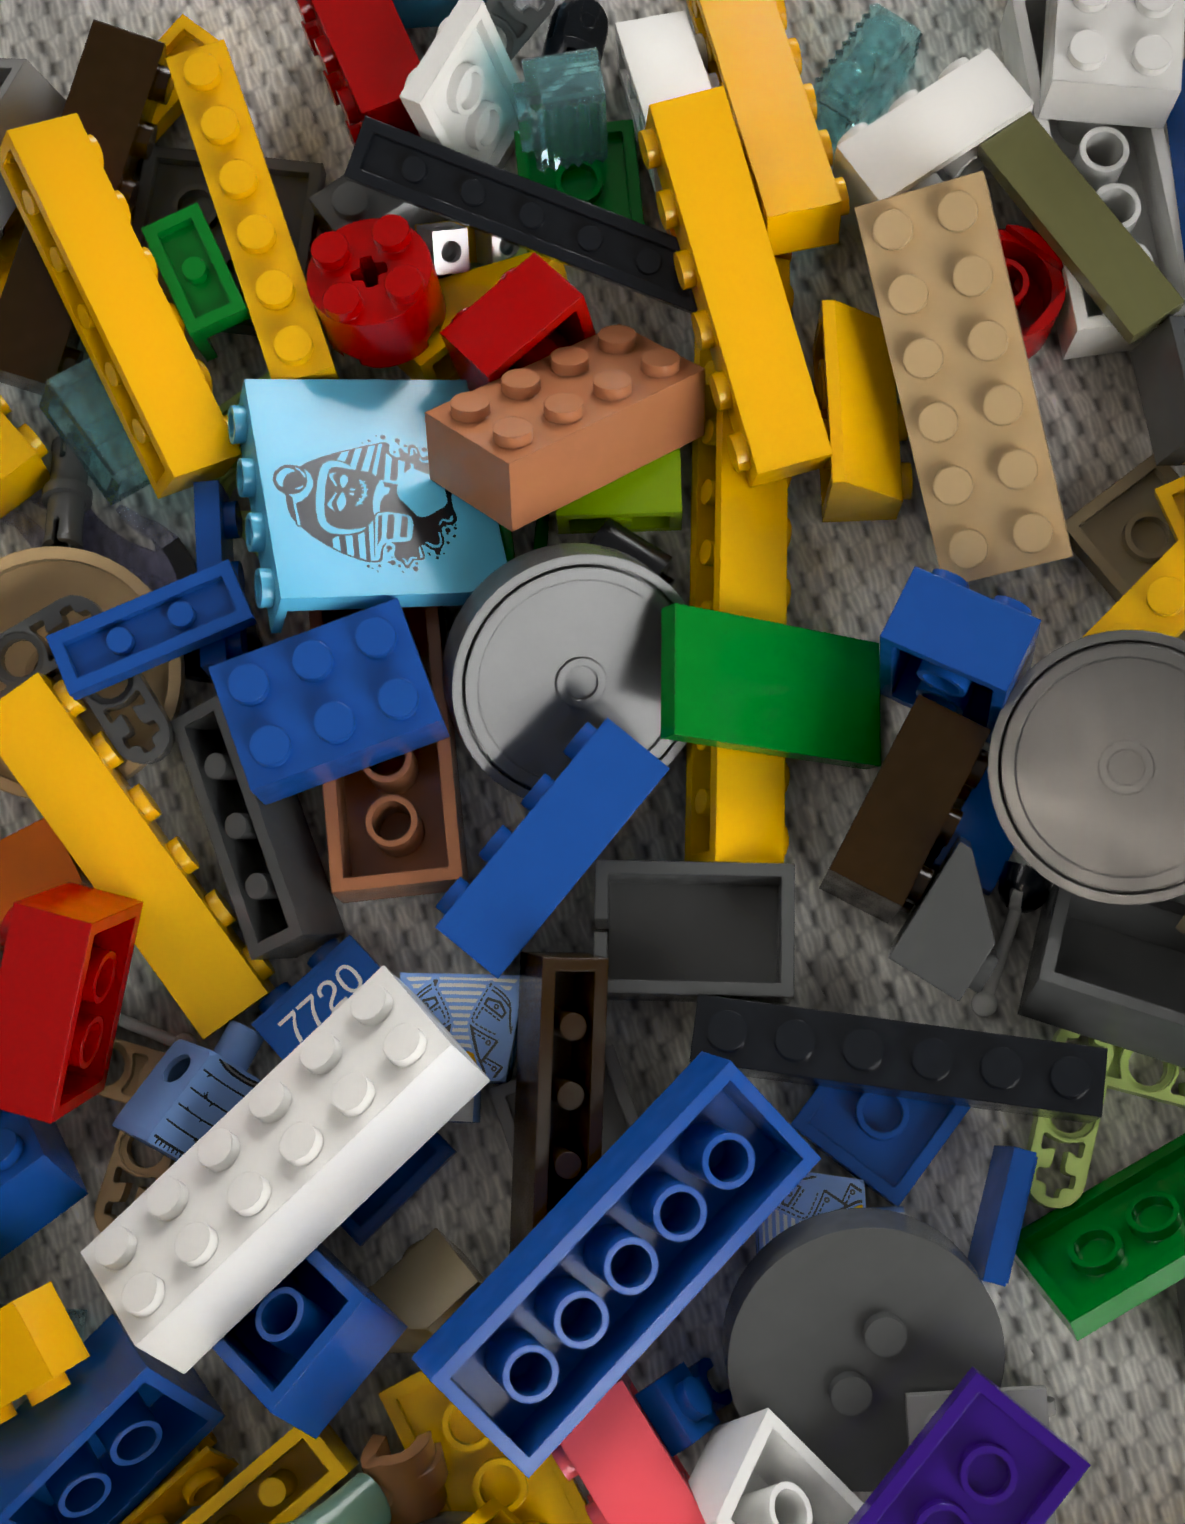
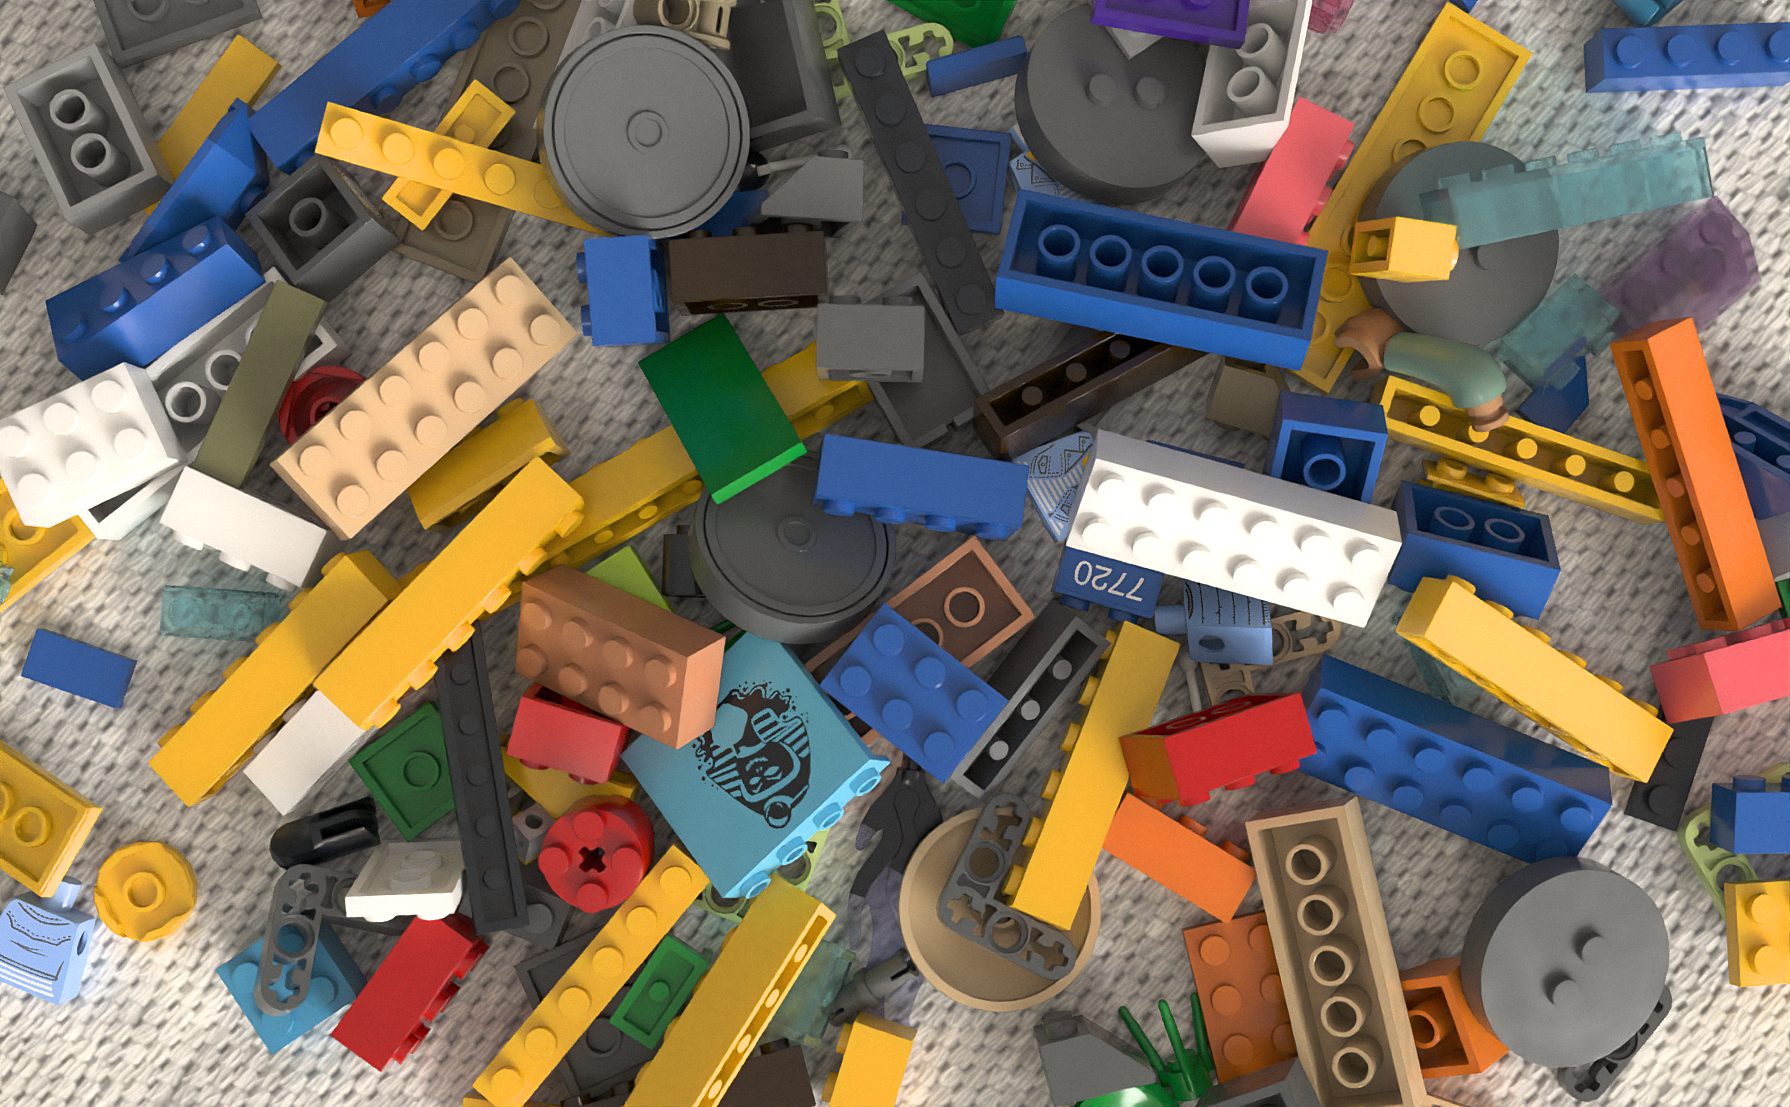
camera: 130 degrees left, 10 degrees up
(151, 630) = (936, 847): blue plate -> none
(216, 525) = (867, 834): blue plate -> none
(562, 109) = (380, 804): clear light blue brick -> none
(683, 1405) = (1219, 194): blue plate -> none
(741, 874) = (870, 340): none -> dark grey brick

